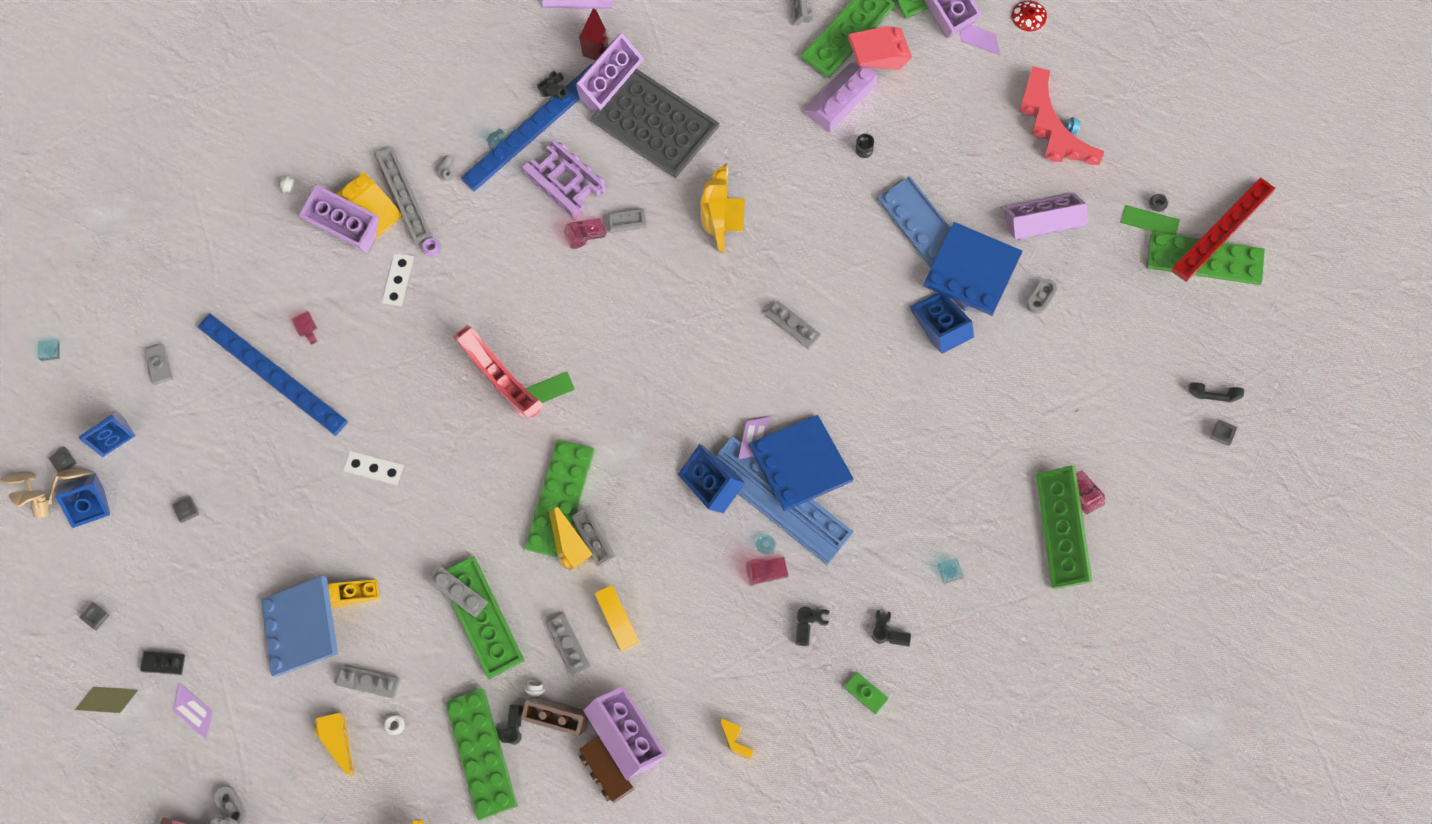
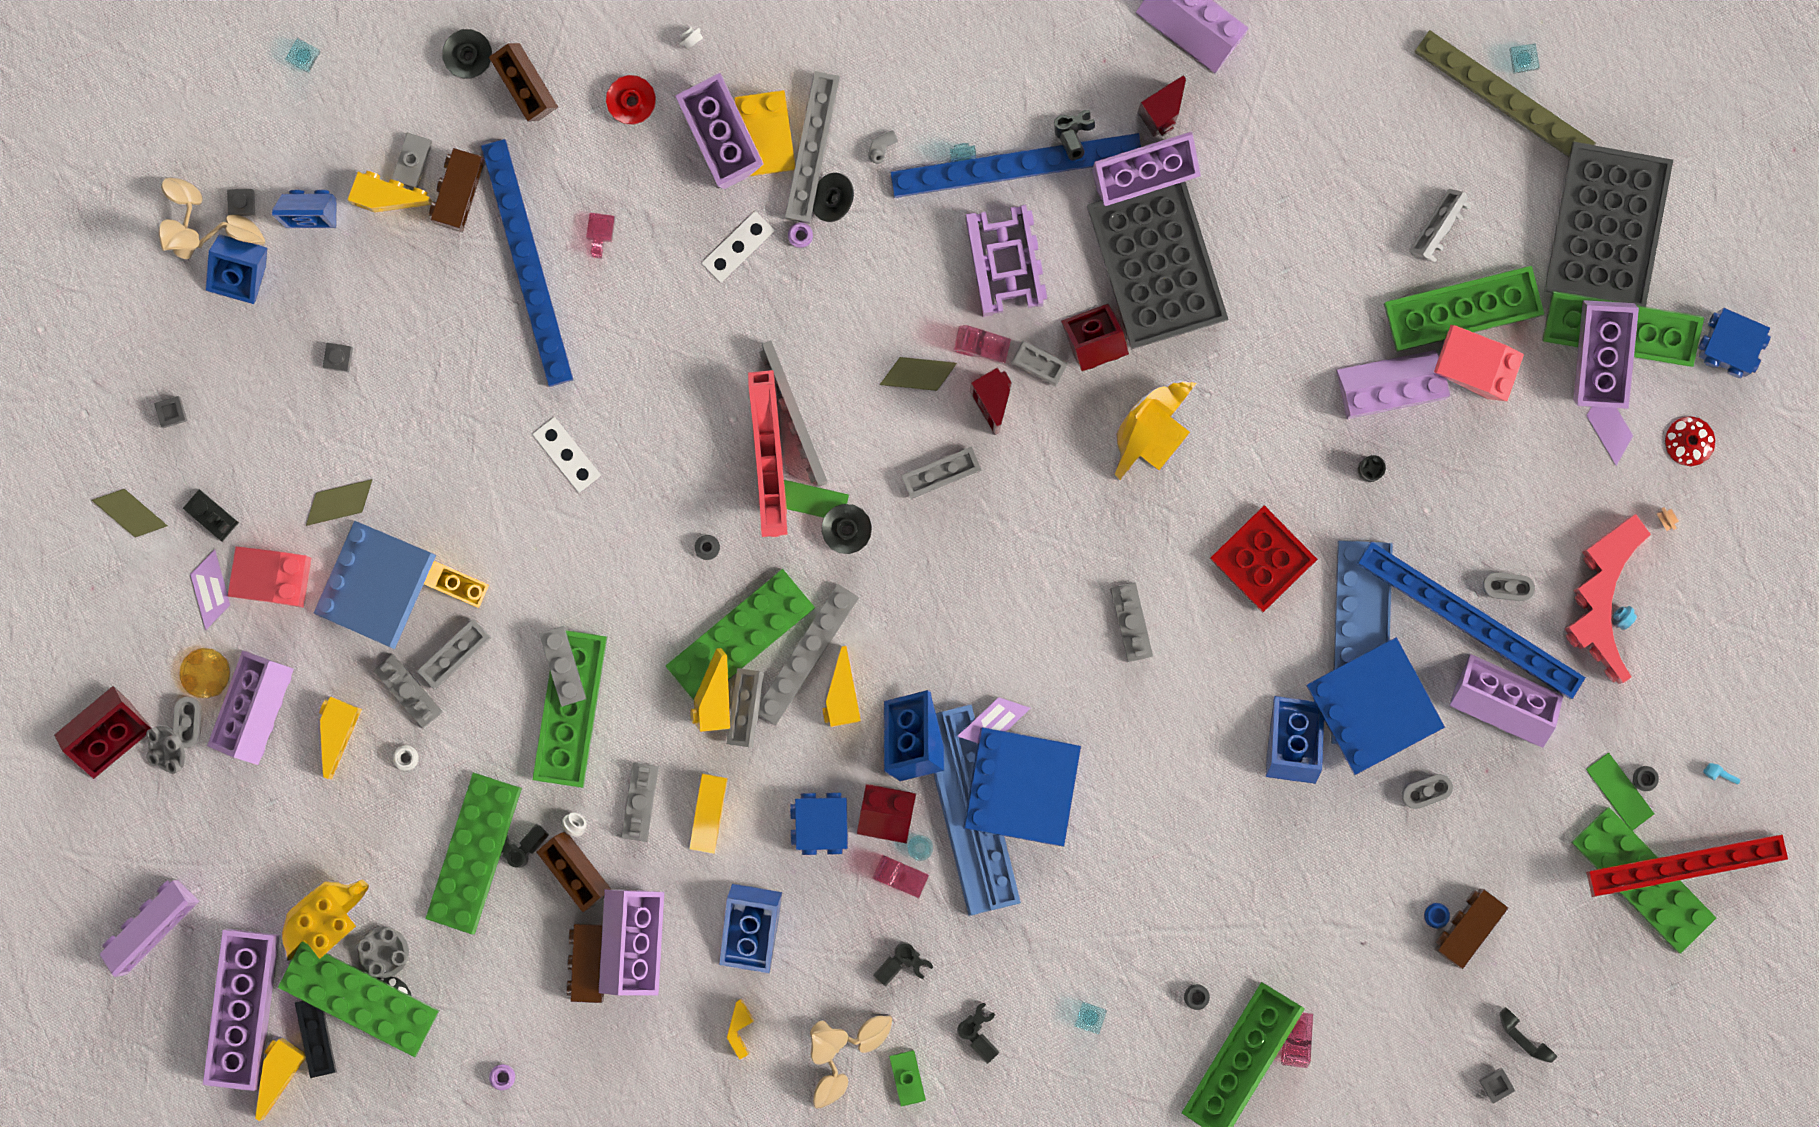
camera: 30 degrees right, 15 degrees up
(148, 276) = (462, 42): none -> pearl dark grey dish
(150, 396) = (381, 196): none -> yellow slope
(198, 360) = (456, 189): none -> reddish brown brick
(199, 272) = (523, 82): none -> reddish brown brick
(222, 766) = (204, 673): none -> clear yellow dish
(227, 672) = (269, 576): none -> coral slope
(244, 597) = (339, 502): none -> olive sticker
(267, 765) = (250, 707): none -> lavender slope
(271, 234) = (626, 88): none -> red dish
(382, 636) = (454, 654): none -> light grey plate
(436, 212) = (833, 197): none -> pearl dark grey dish
(500, 465) = (712, 553): none -> dark grey plate
(505, 350) = (796, 424): none -> light grey plate
(559, 276) = (918, 373): none -> olive sticker
(576, 381) = (846, 515): none -> pearl dark grey dish
(609, 480) = (807, 654): none -> light grey plate
(611, 251) = (991, 396): none -> dark red slope
(614, 319) = (941, 472): none -> light grey plate
(650, 184) = (1095, 337): none -> dark red slope
(652, 491) = (841, 698): none -> yellow slope
(692, 572) = (820, 823): none -> blue brick
(696, 671) = (750, 928): none -> blue slope
(729, 537) = (886, 813): none -> dark red slope
(797, 700) = (829, 1041): none -> tan plant
(842, 236) = (1263, 558): none -> red plate
(988, 185) = (1471, 620): none -> blue plate
(993, 156) = (1508, 585): none -> light grey plate
(1004, 506) = (1205, 997): none -> dark grey plate
(1052, 60) = (1668, 518): none -> light nougat plate
(1106, 362) = (1437, 915): none -> blue plate
(1131, 353) = (1470, 927): none -> reddish brown brick
(1192, 172) = (1714, 770): none -> medium azure hand

